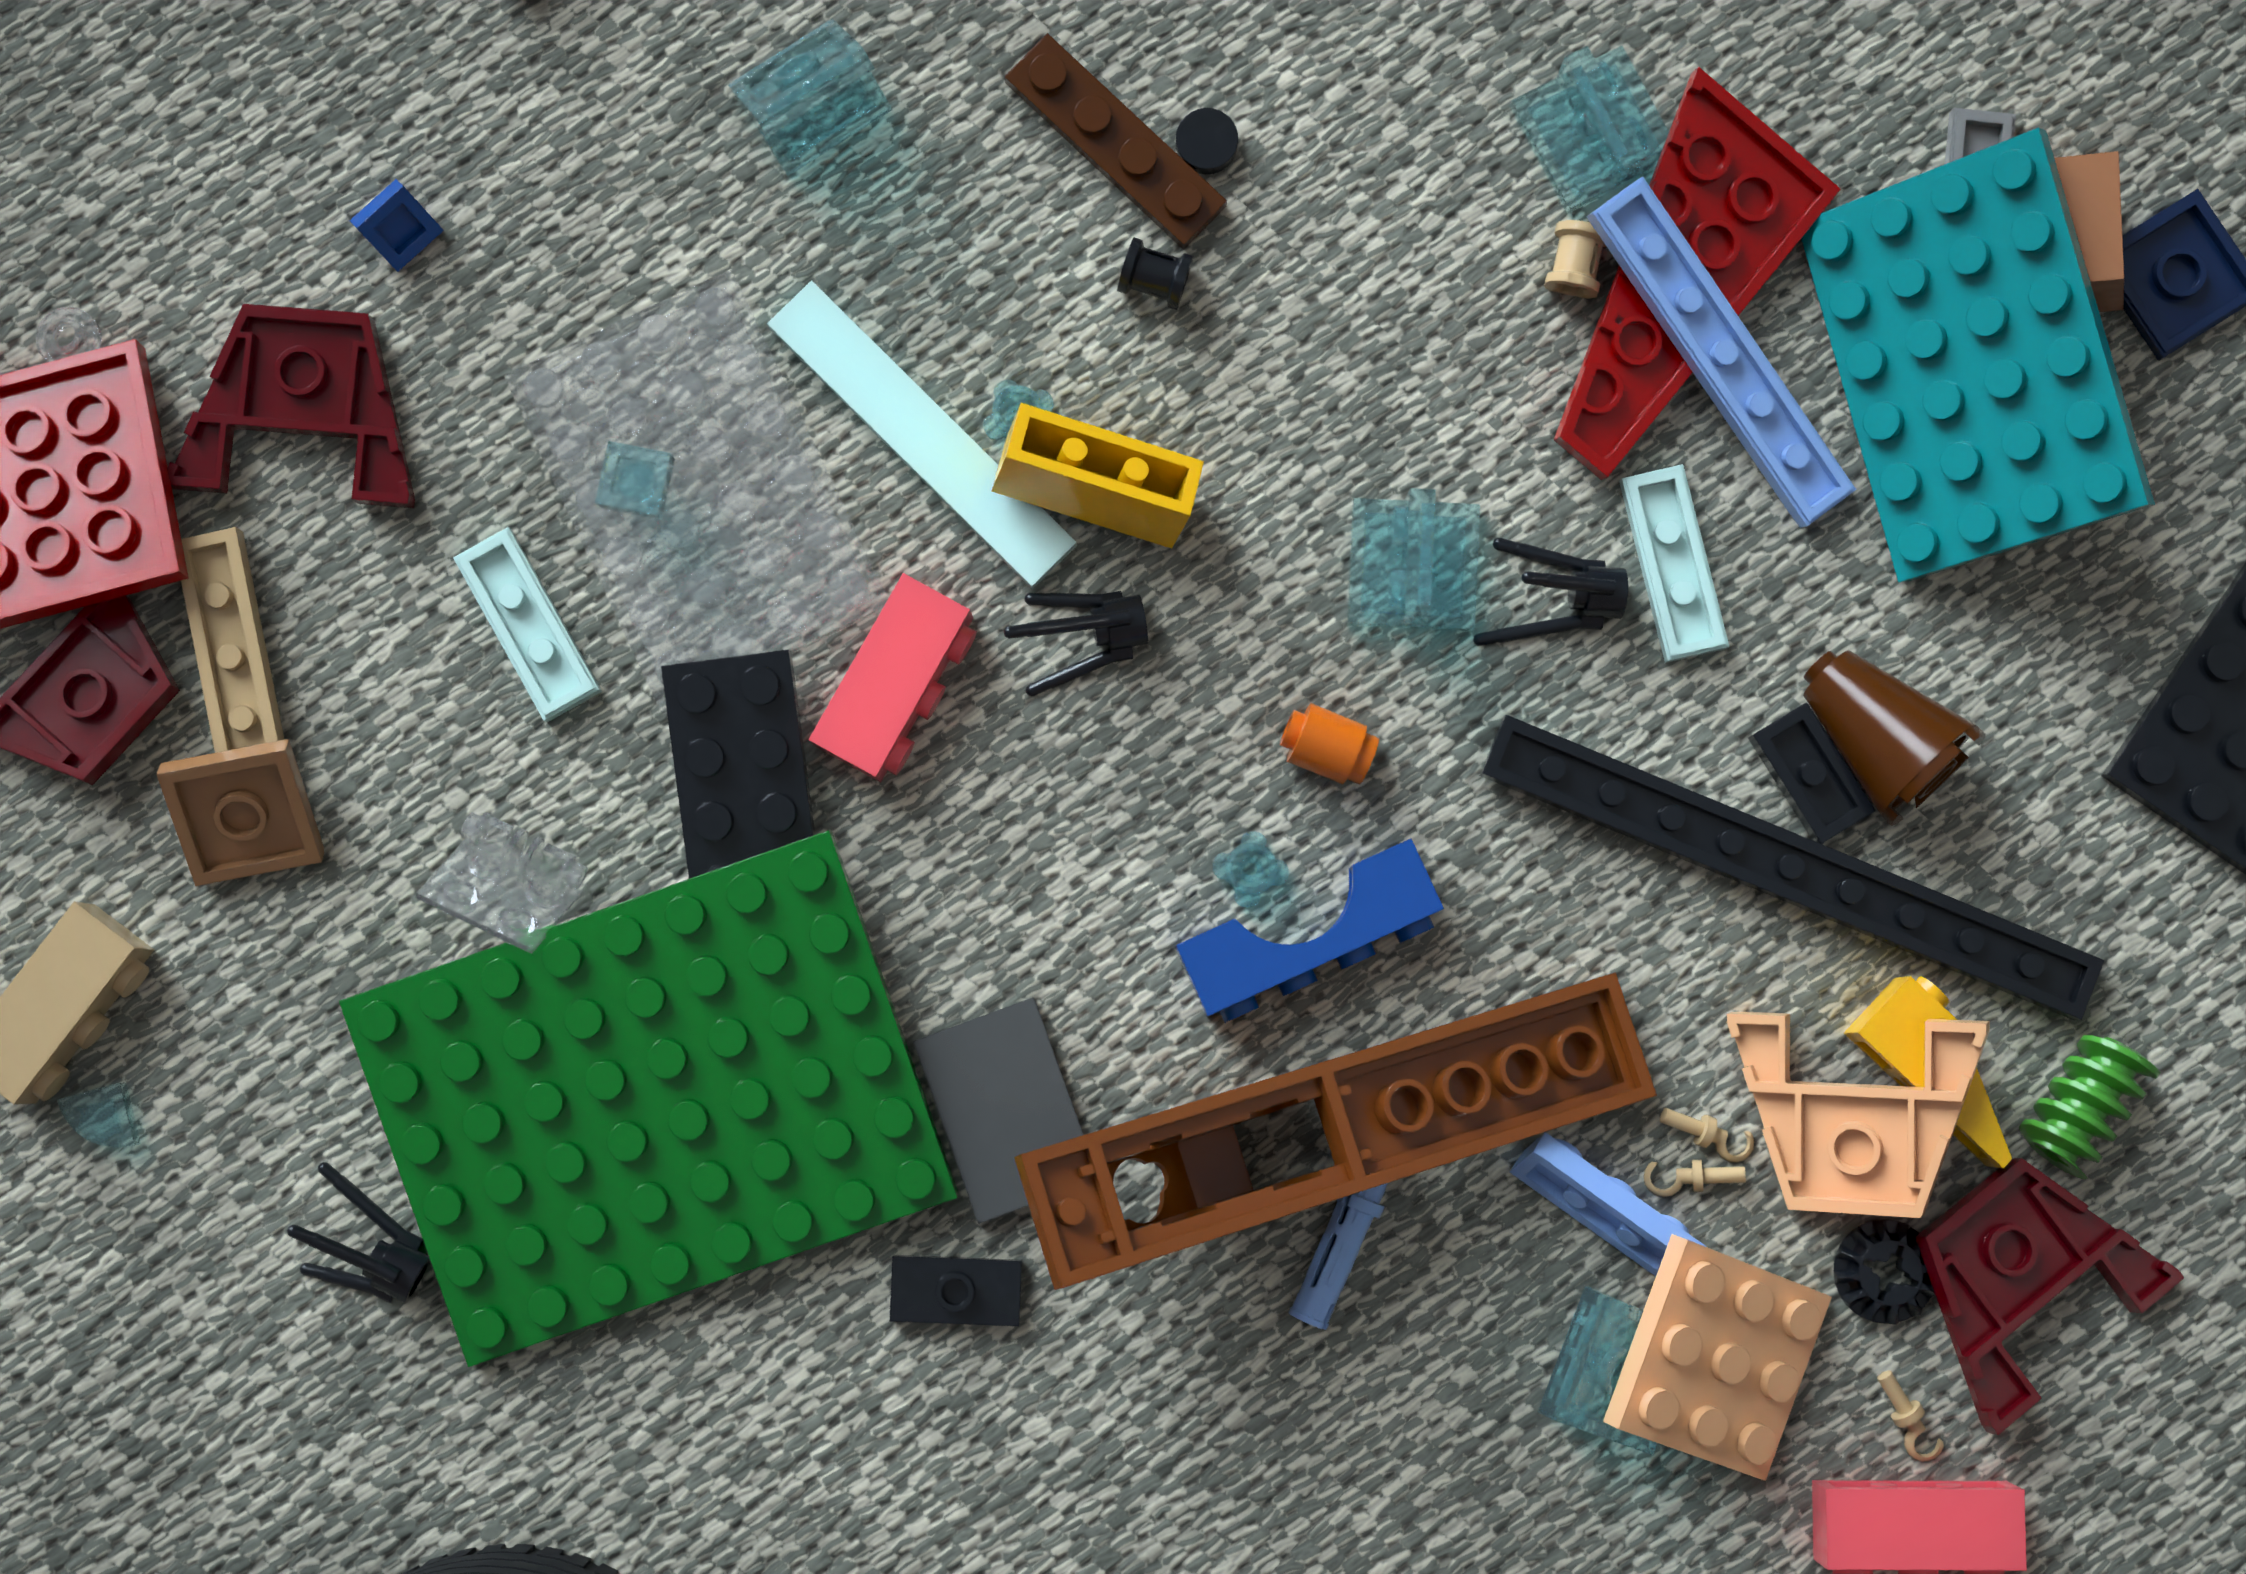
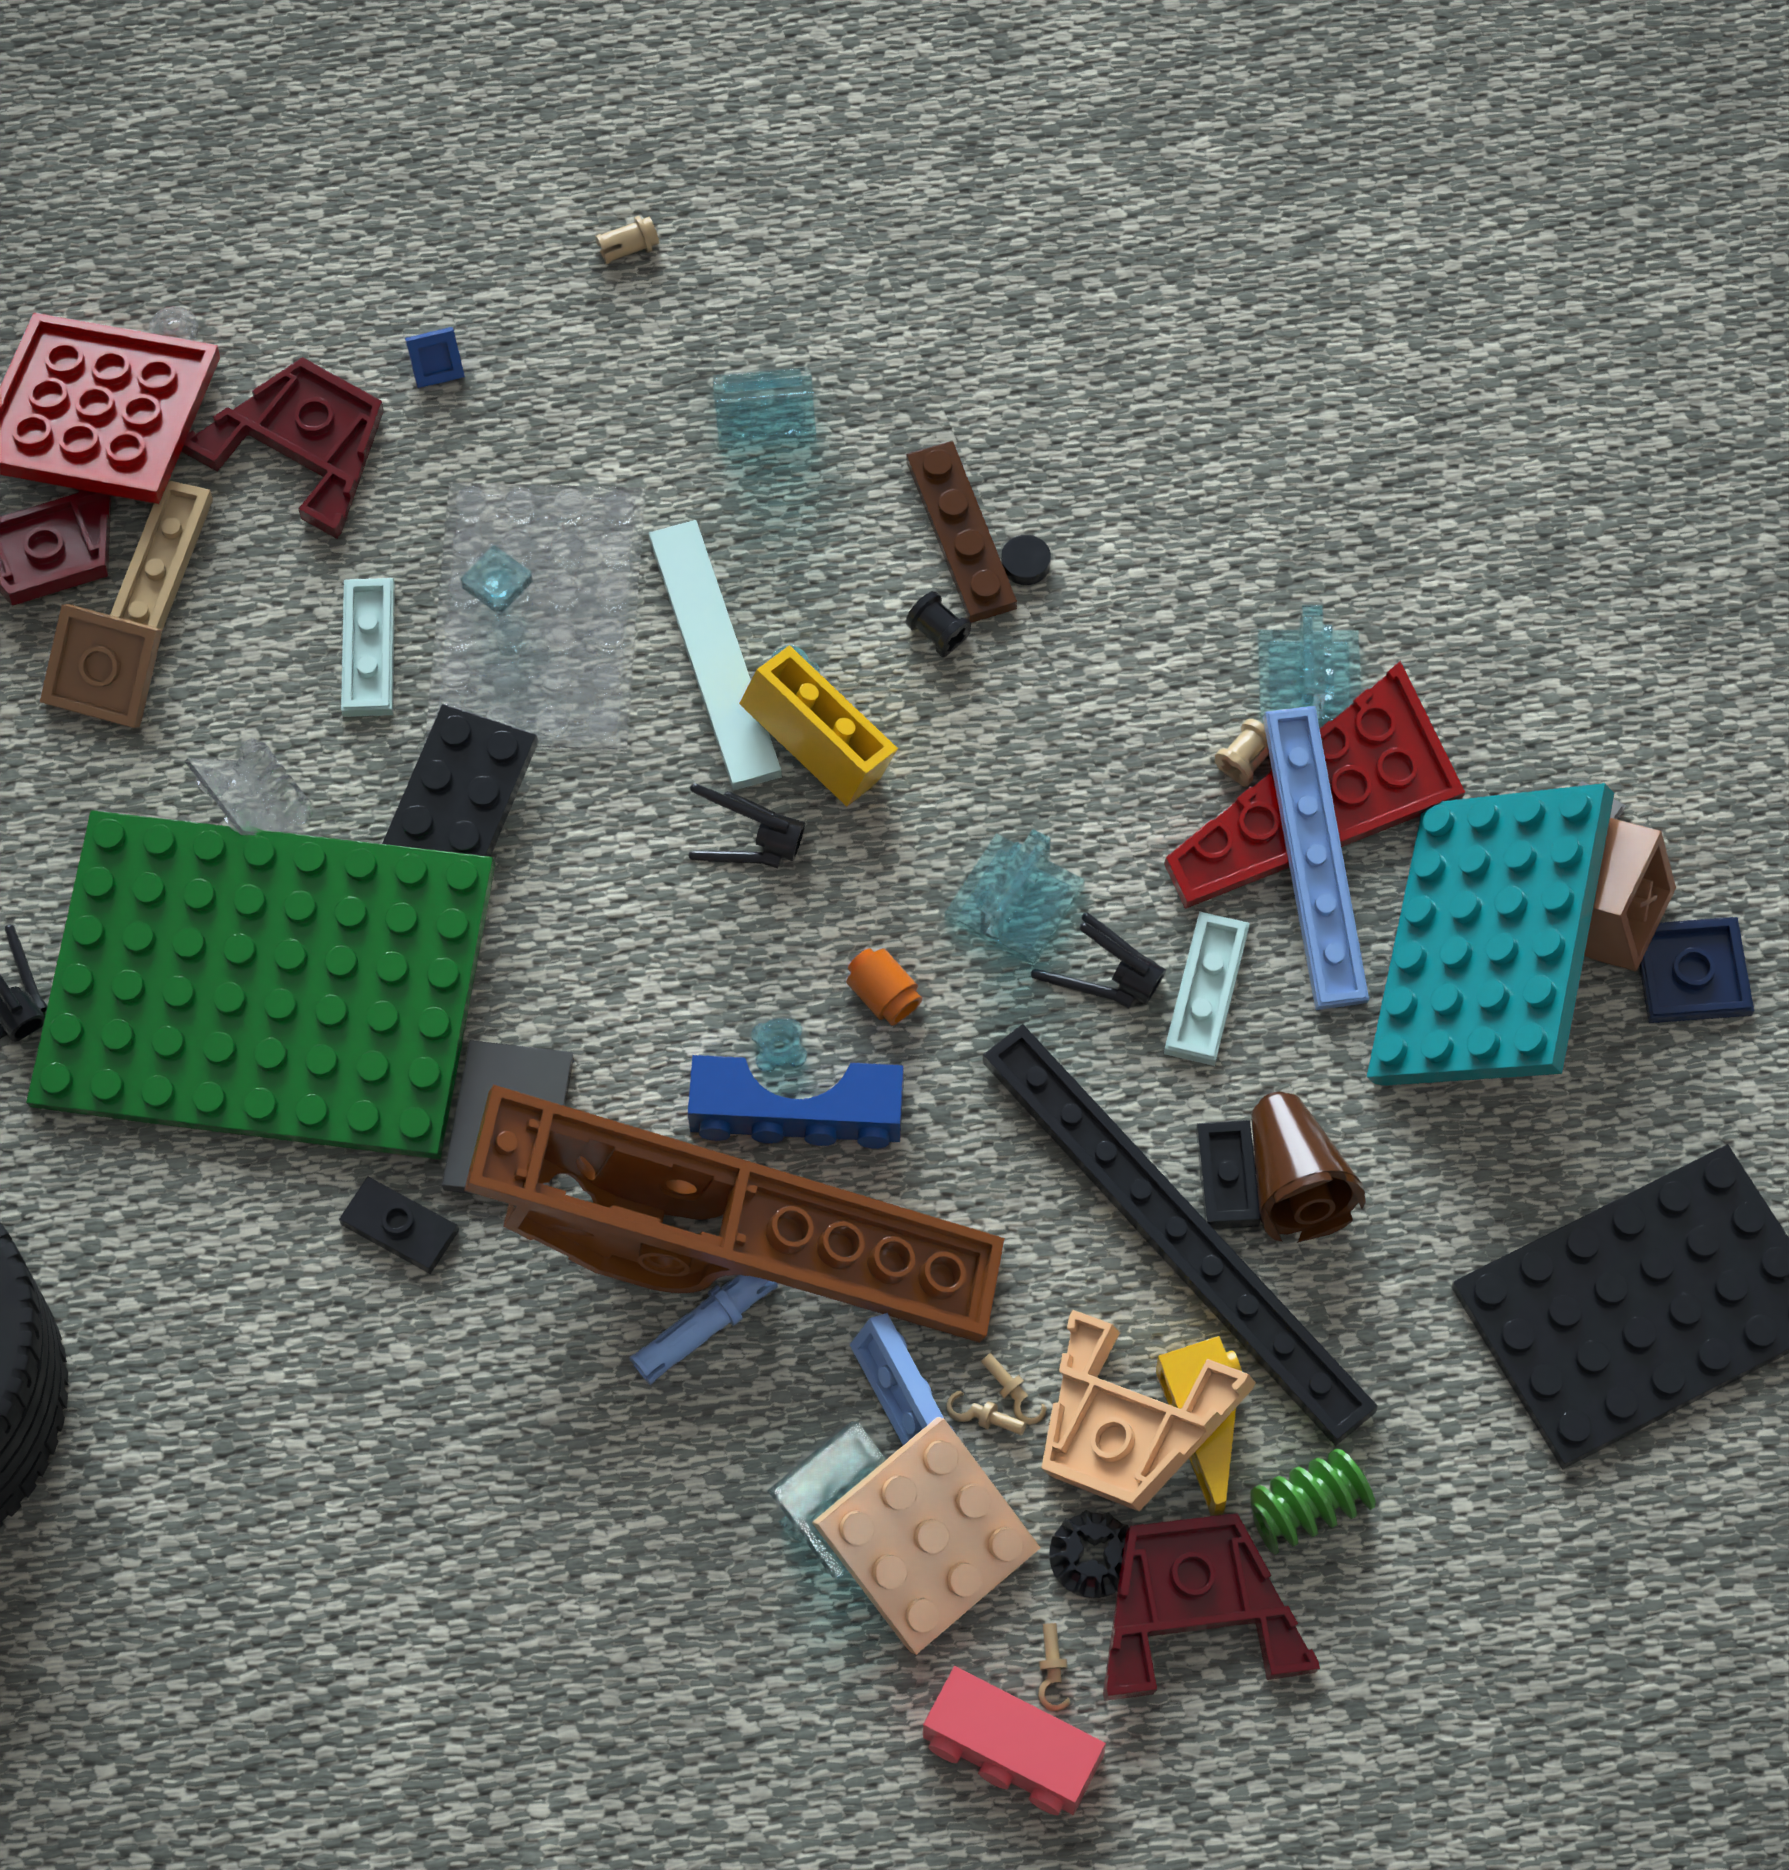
camera: 25 degrees right, 20 degrees down
(894, 679) = (598, 795): coral brick -> none

